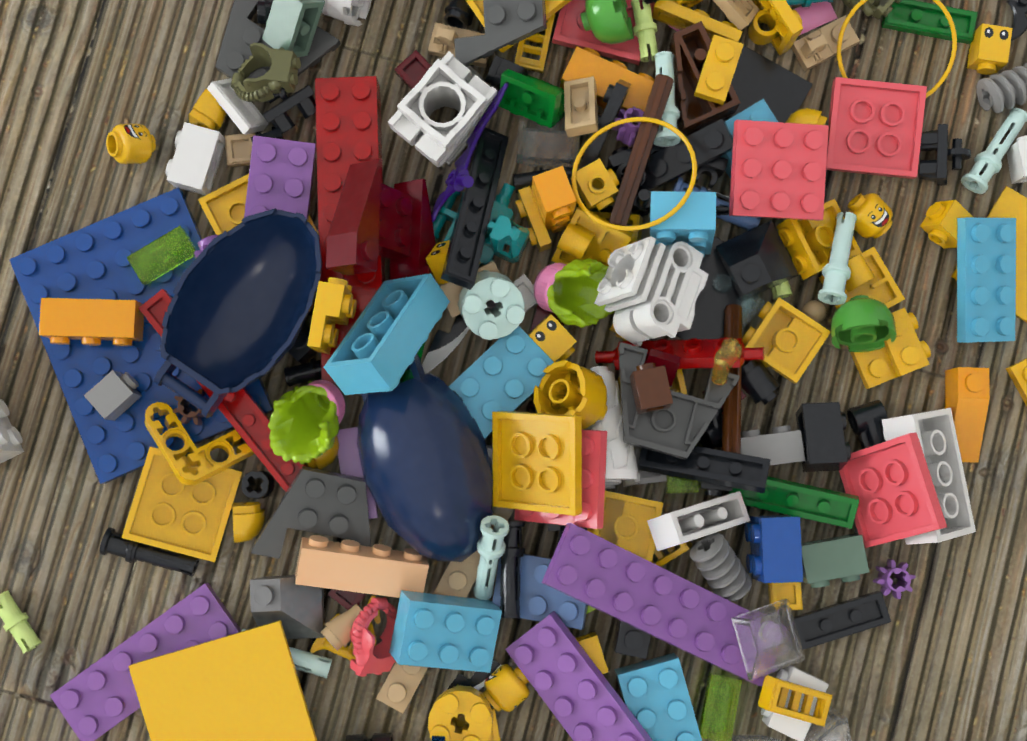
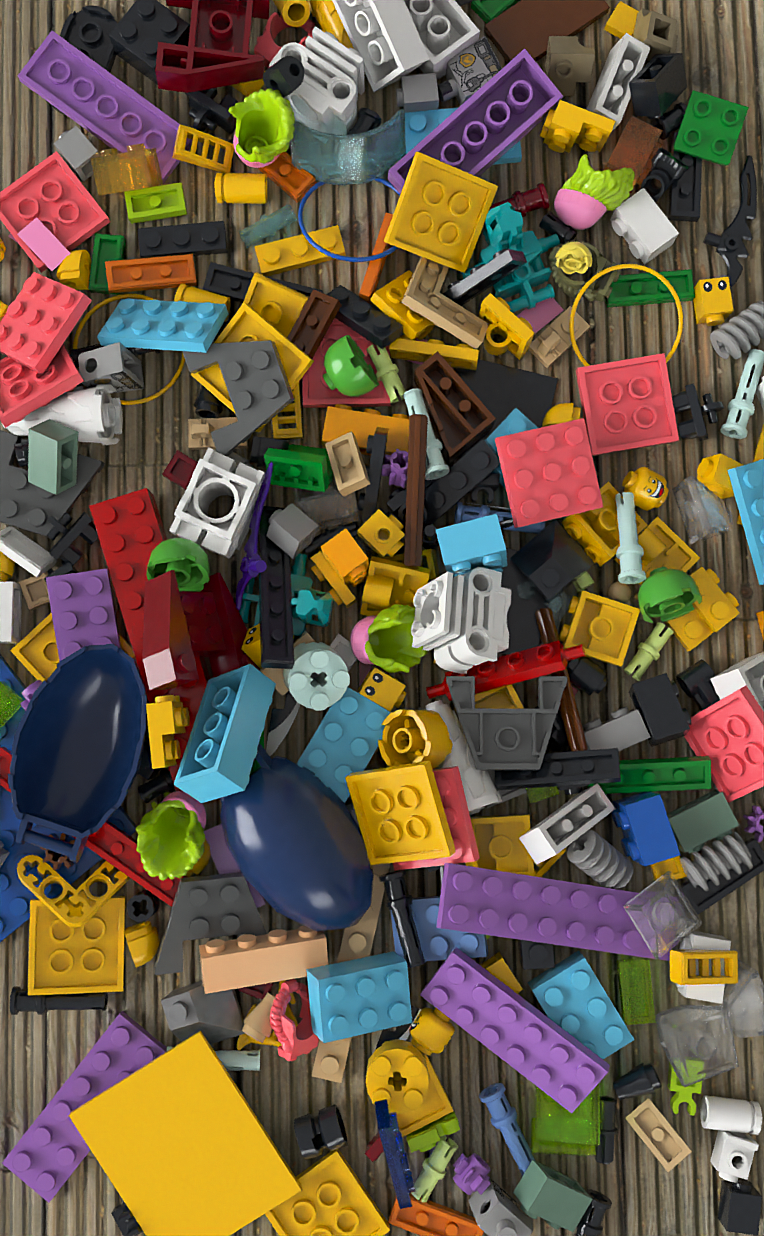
camera: 15 degrees left, 0 degrees up
(282, 73) = (56, 513): olive piece -> none
(397, 153) = (185, 558): none -> bright green cylinder
(491, 548) = (379, 906): light aqua pin -> none
(507, 157) = (291, 530): none -> light grey brick
(650, 224) = (450, 556): yellow piece -> none
(650, 388) = (487, 713): reddish brown brick -> none
(670, 361) = (491, 689): dark red tile -> none
(718, 69) = (466, 393): yellow plate -> none
(725, 359) = (549, 667): clear yellow arm -> none
(827, 377) = (648, 651): none -> yellowish green pin
(837, 601) = (716, 861): none -> light grey piece
(919, 252) = (701, 510): none -> clear slope

